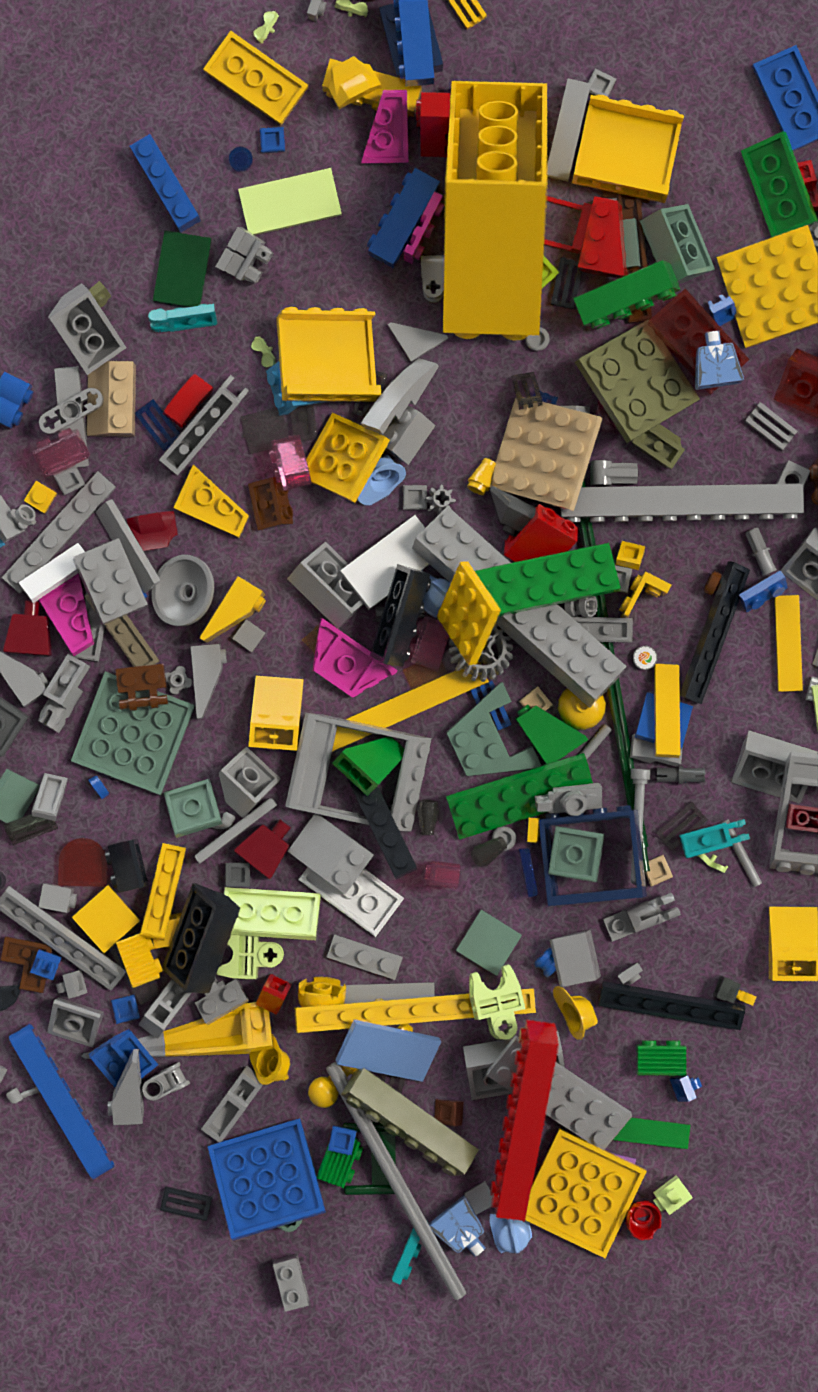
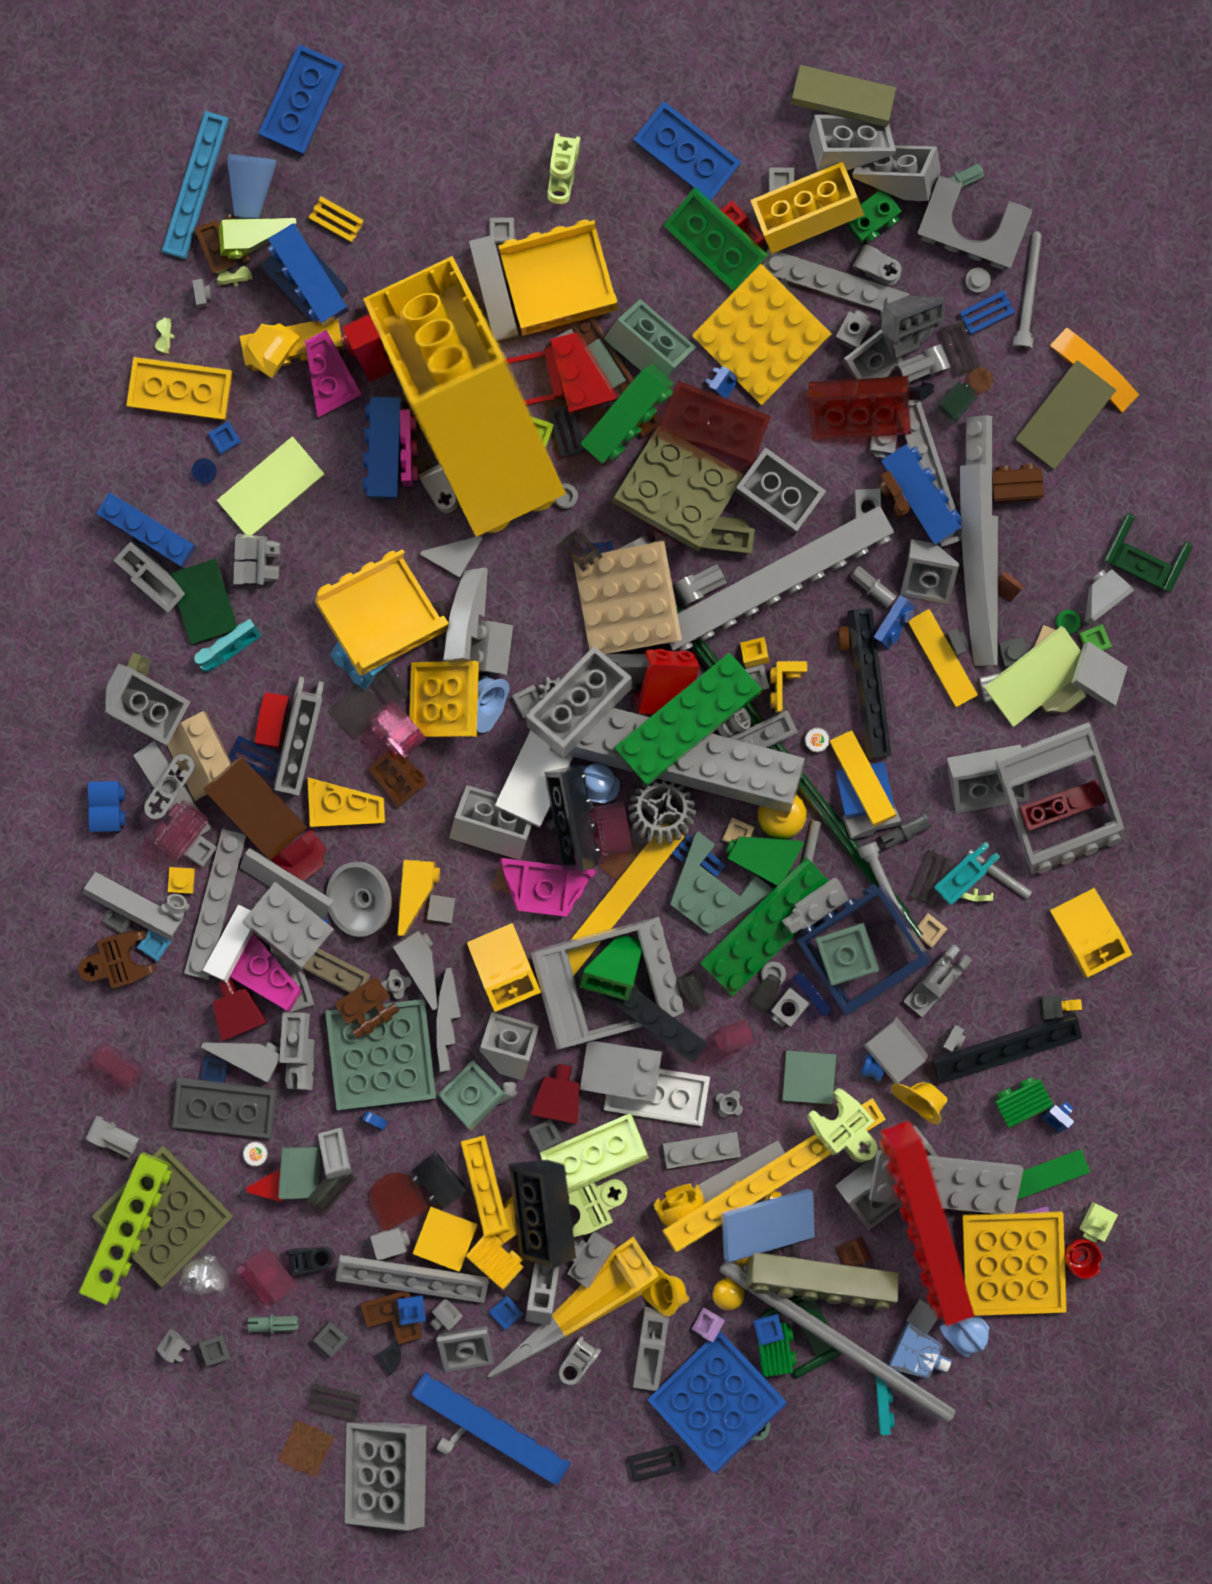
camera: 25 degrees left, 0 degrees up
(114, 1054) = (528, 1360): blue slope -> none
(127, 1099) = (551, 1395): light grey slope -> none
(134, 467) = (255, 808): none -> reddish brown tile
(147, 223) = (149, 575): none -> light grey slope
(210, 724) = (447, 1010): none -> light grey slope
(235, 830) = (522, 1095): light grey tile -> none
(260, 345) = (325, 642): yellowish green piece -> none
(273, 994) = (635, 1228): red slope -> none
(291, 1282) = (789, 1485): light grey brick -> none
(292, 1109) = (708, 1324): none -> lavender tile
(406, 923) = (725, 1110): none -> light grey plate
(457, 518) = (579, 702): none -> light grey brick
(468, 613) = (634, 784): yellow plate -> none
(481, 478) = (579, 647): yellow cone -> none
(513, 874) = (799, 1003): none -> light grey brick
(533, 830) = (797, 952): yellow tile -> none
(574, 803) = (821, 908): light grey tile -> none
(680, 56) = (562, 167): none -> yellowish green piece
(716, 364) = (743, 436): medium blue torso -> none
(723, 428) = (780, 490): none -> light grey brick
(787, 438) = (845, 460): light grey tile -> none
(808, 635) = (957, 641): none -> dark grey plate

